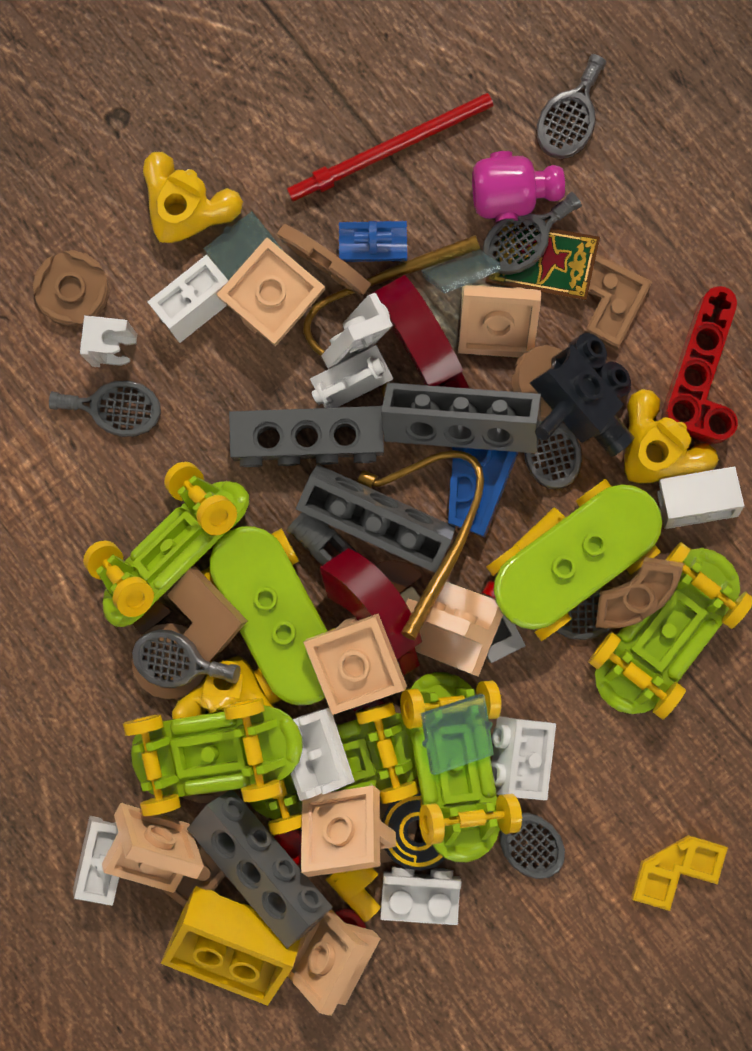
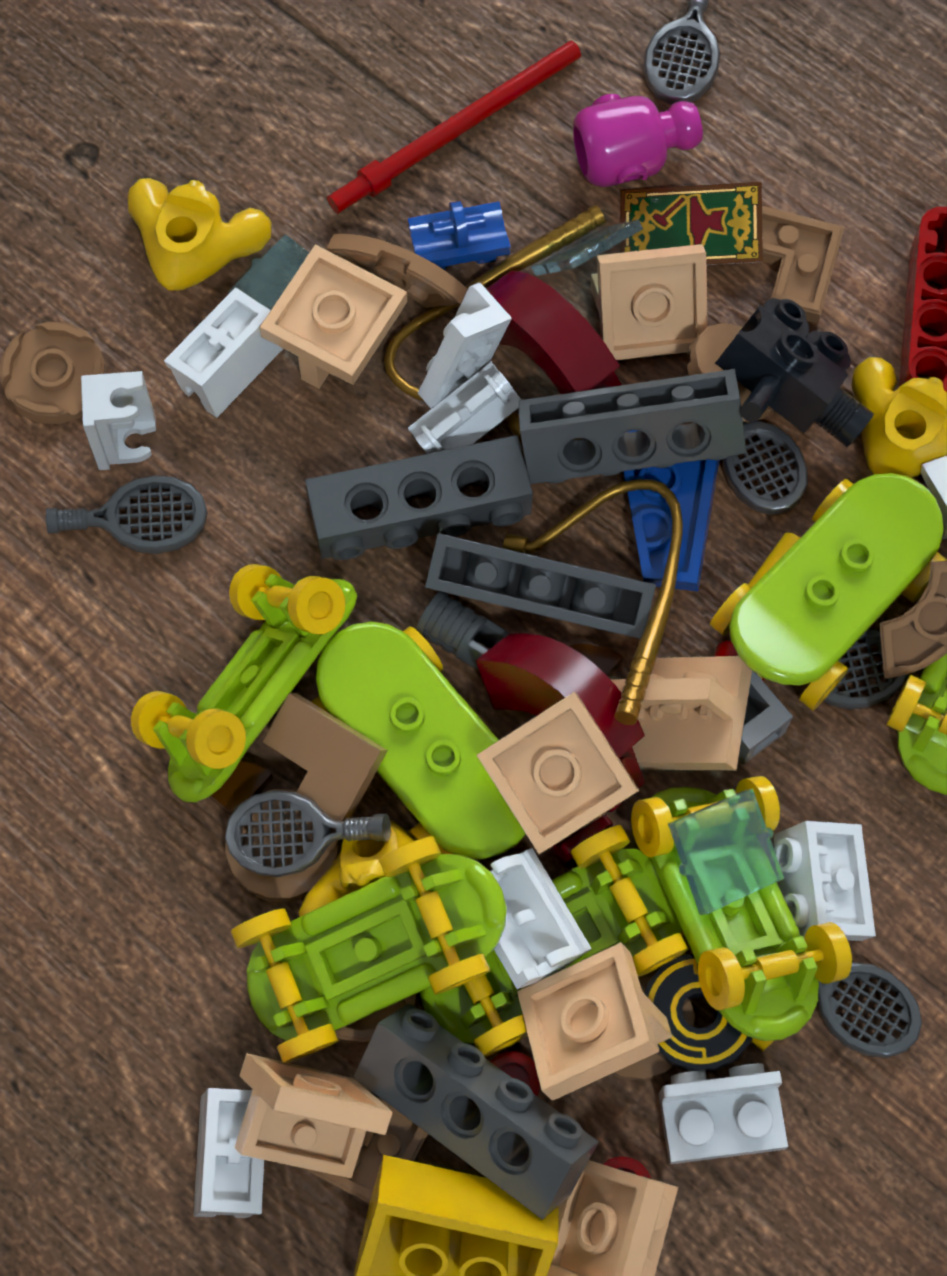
camera: 15 degrees left, 15 degrees down
(351, 889) = (611, 1117): yellow piece -> none
(557, 212) = (711, 148): dark grey piece -> none

